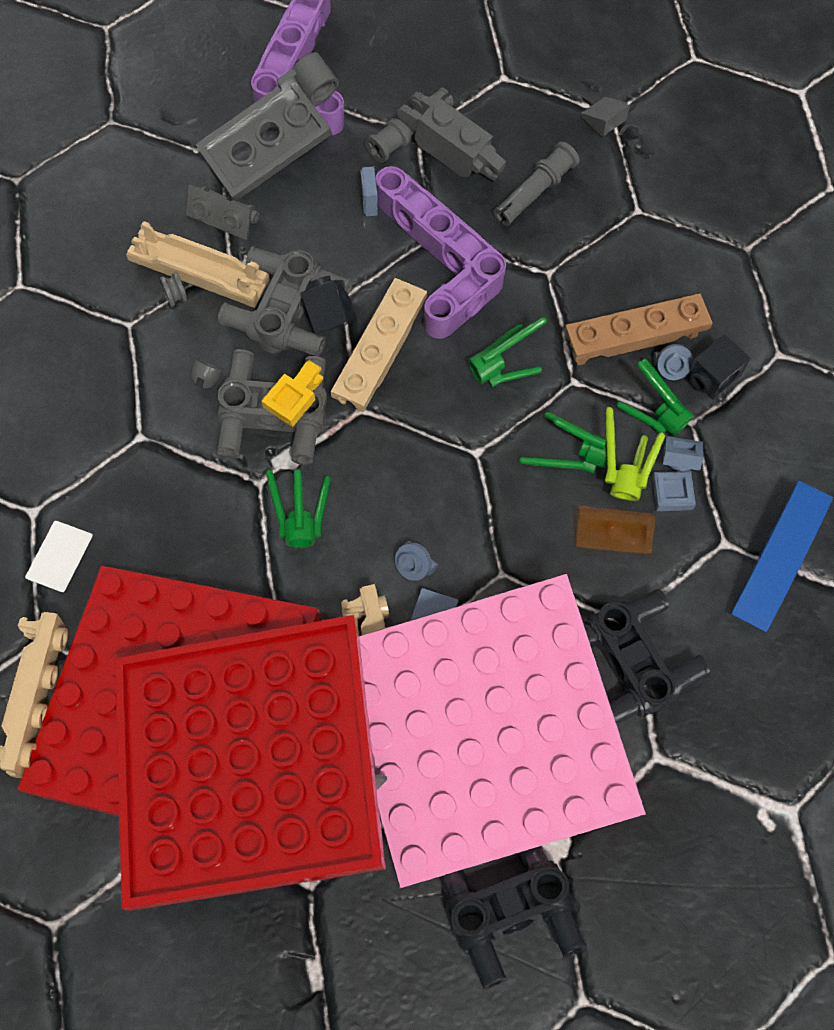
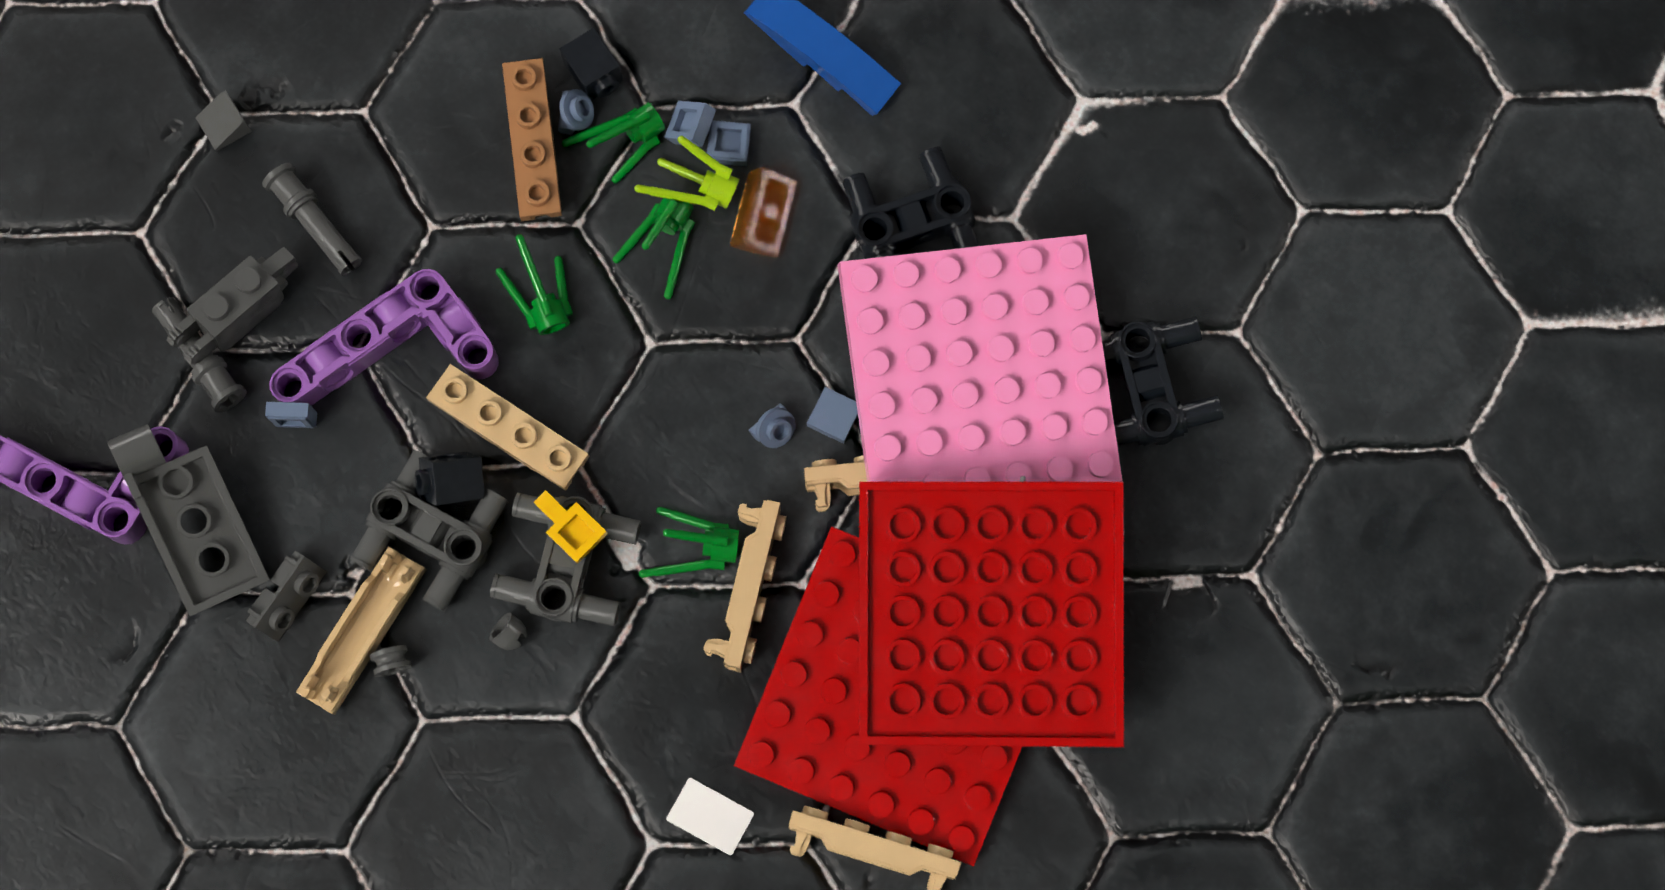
camera: 80 degrees left, 10 degrees up
(260, 555) = (745, 601): none -> tan piece

